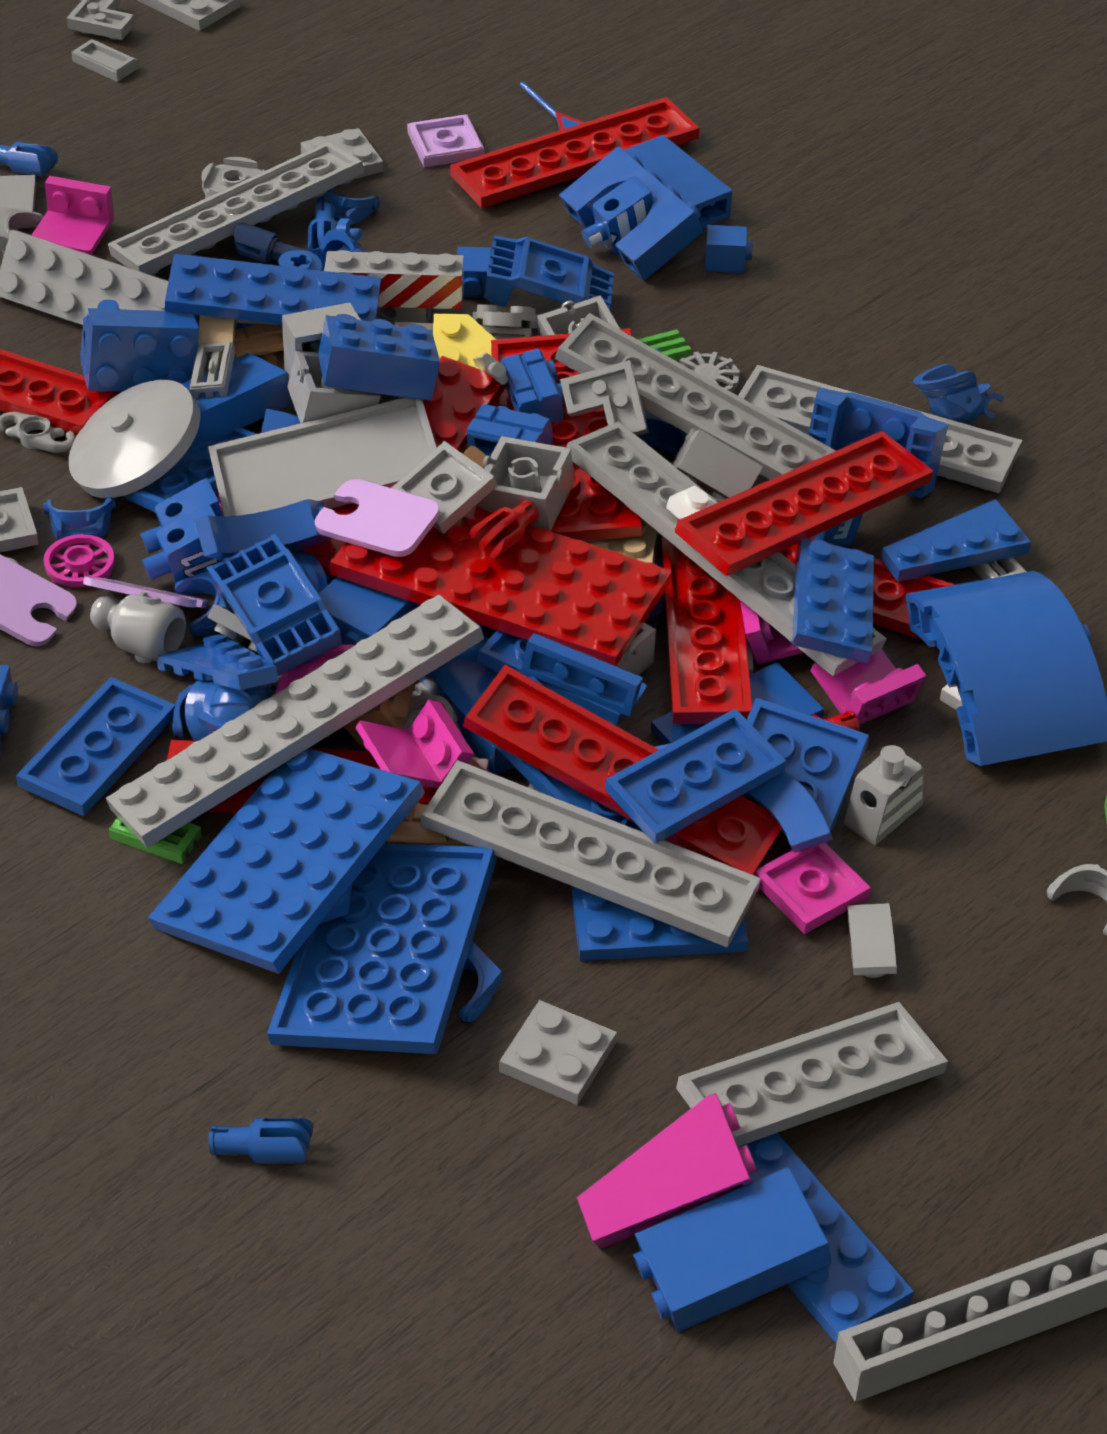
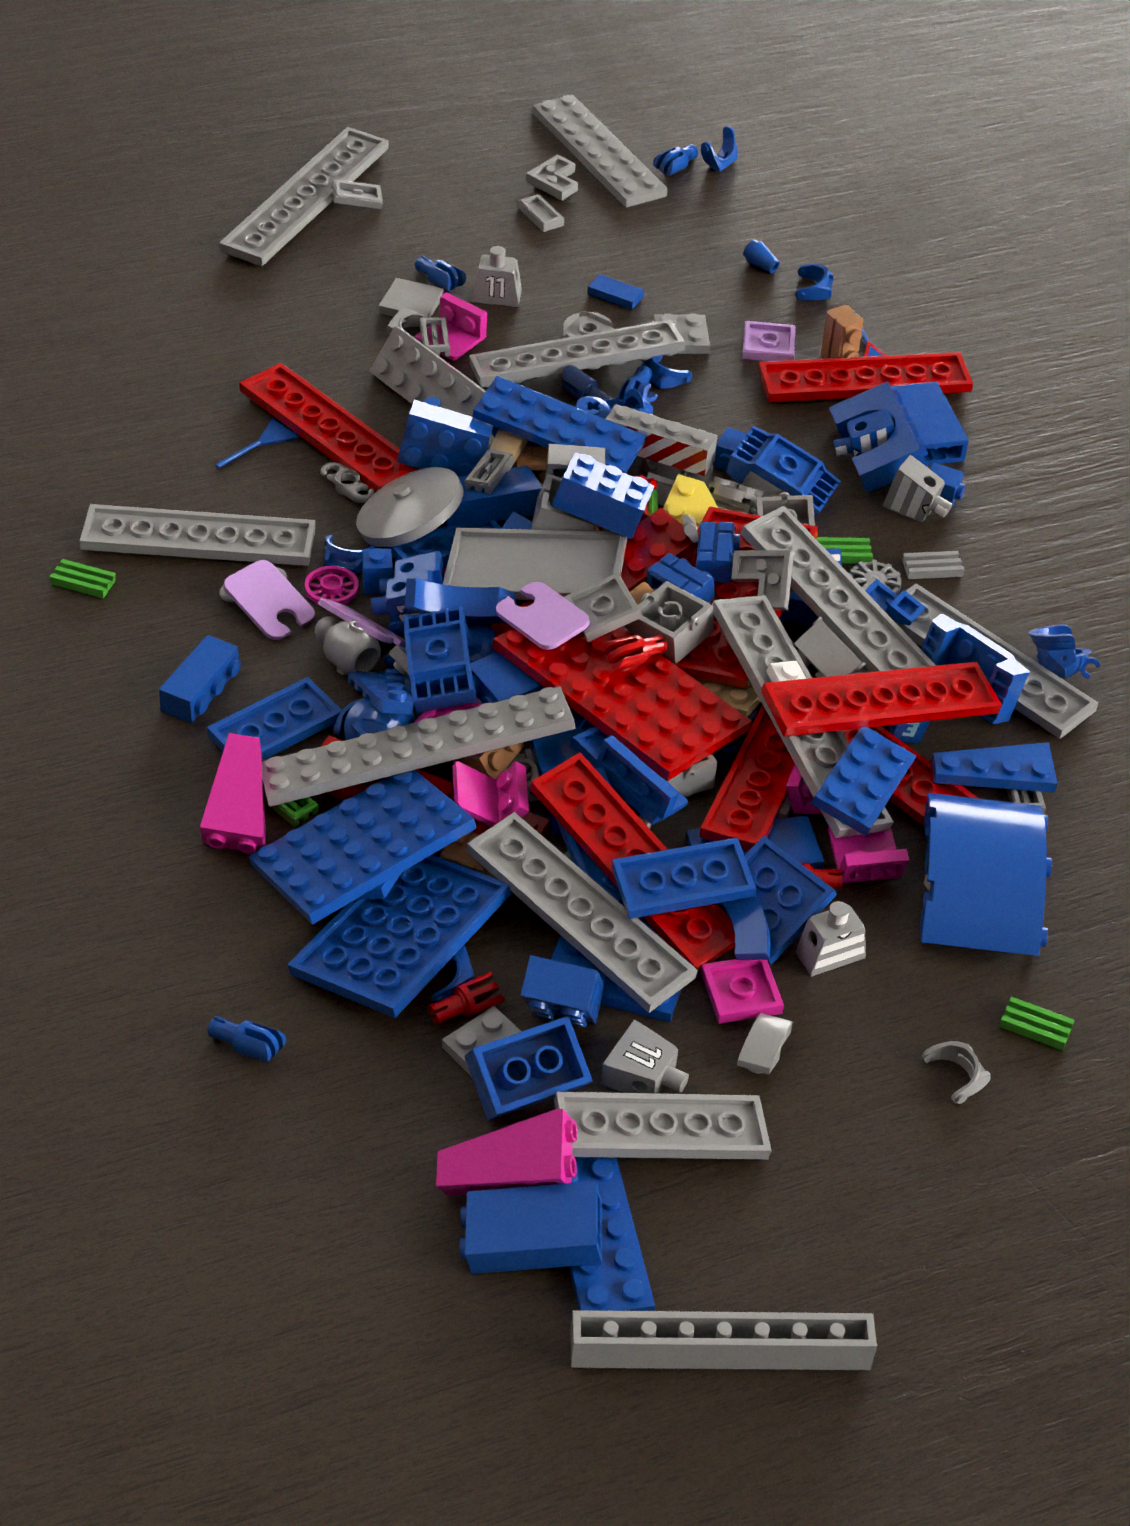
camera: 20 degrees right, 0 degrees up
(34, 222) = (436, 348): none -> light grey tile
(96, 147) = (497, 279): none -> light grey torso
(105, 854) = (236, 801): none -> dark pink slope
(126, 522) = (375, 565): none -> blue brick
(240, 128) = (615, 291): none -> blue tile
(388, 47) = (761, 256): none -> blue cone
(466, 51) = (820, 290): none -> blue helmet
(502, 1006) = (464, 1001): none -> red arm
(531, 108) = (842, 333): none -> medium nougat brick
(627, 954) = (562, 991): none -> blue brick
(627, 1061) = (528, 1068): none -> blue brick
(706, 263) = (916, 492): none -> light grey torso
(750, 1009) = (643, 1063): none -> light grey torso
(759, 392) = (900, 608): none -> blue slope
(760, 340) = (933, 565): none -> light grey tile

